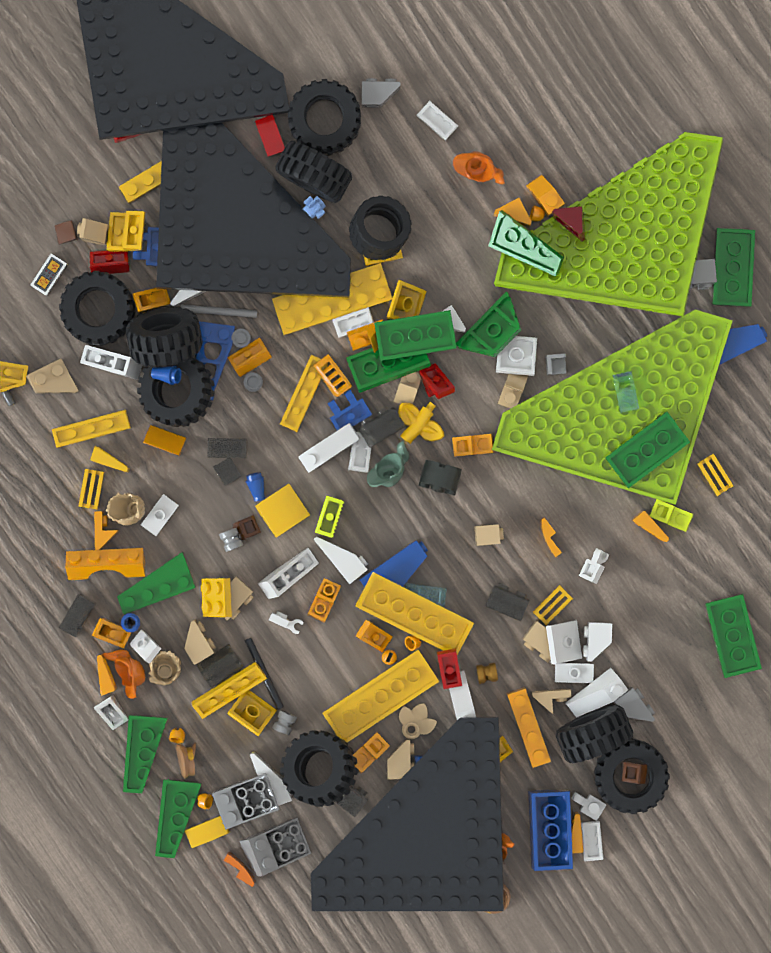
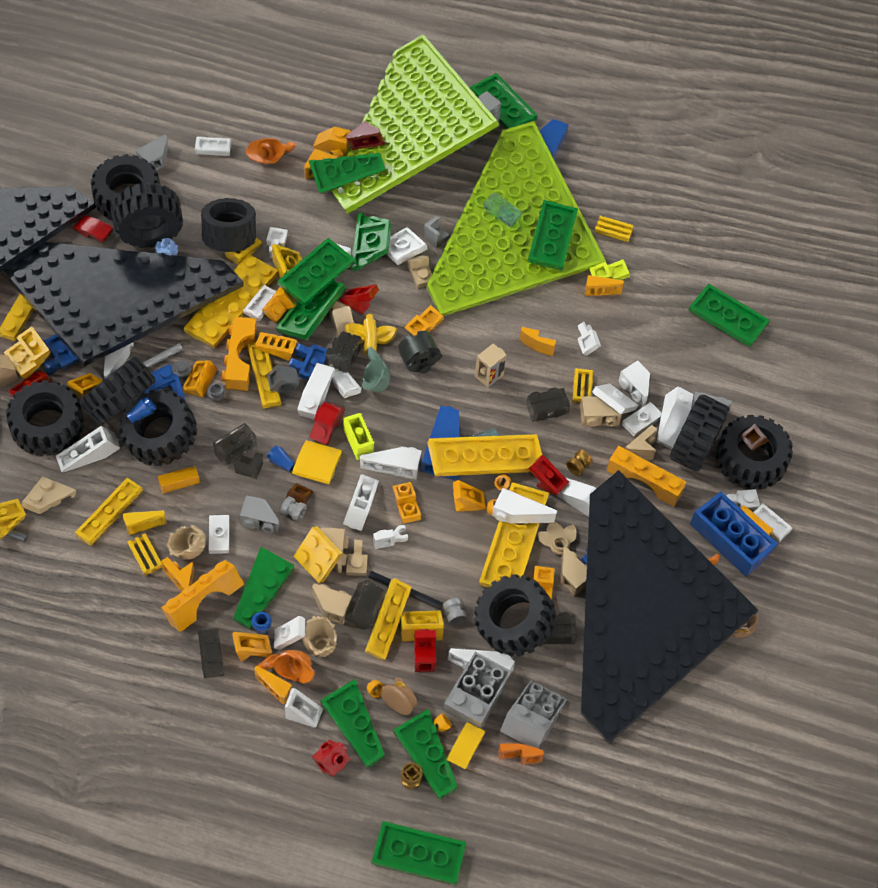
camera: 40 degrees left, 30 degrees down
(102, 766) = (331, 757): none -> red brick
(109, 882) = (418, 853): none -> green plate
(150, 821) = (411, 781): none -> pearl gold wheel
(201, 524) = (259, 515): none -> light grey slope
(234, 737) = (424, 650): none -> red brick
(245, 622) = (357, 562): none -> tan plate
(311, 415) = (283, 379): none -> dark grey brick
(314, 342) = (237, 372): none -> light orange arch
(317, 481) = (326, 420): none -> red brick
(397, 679) = (519, 509): none -> white slope
(415, 265) = (276, 236): none -> white plate

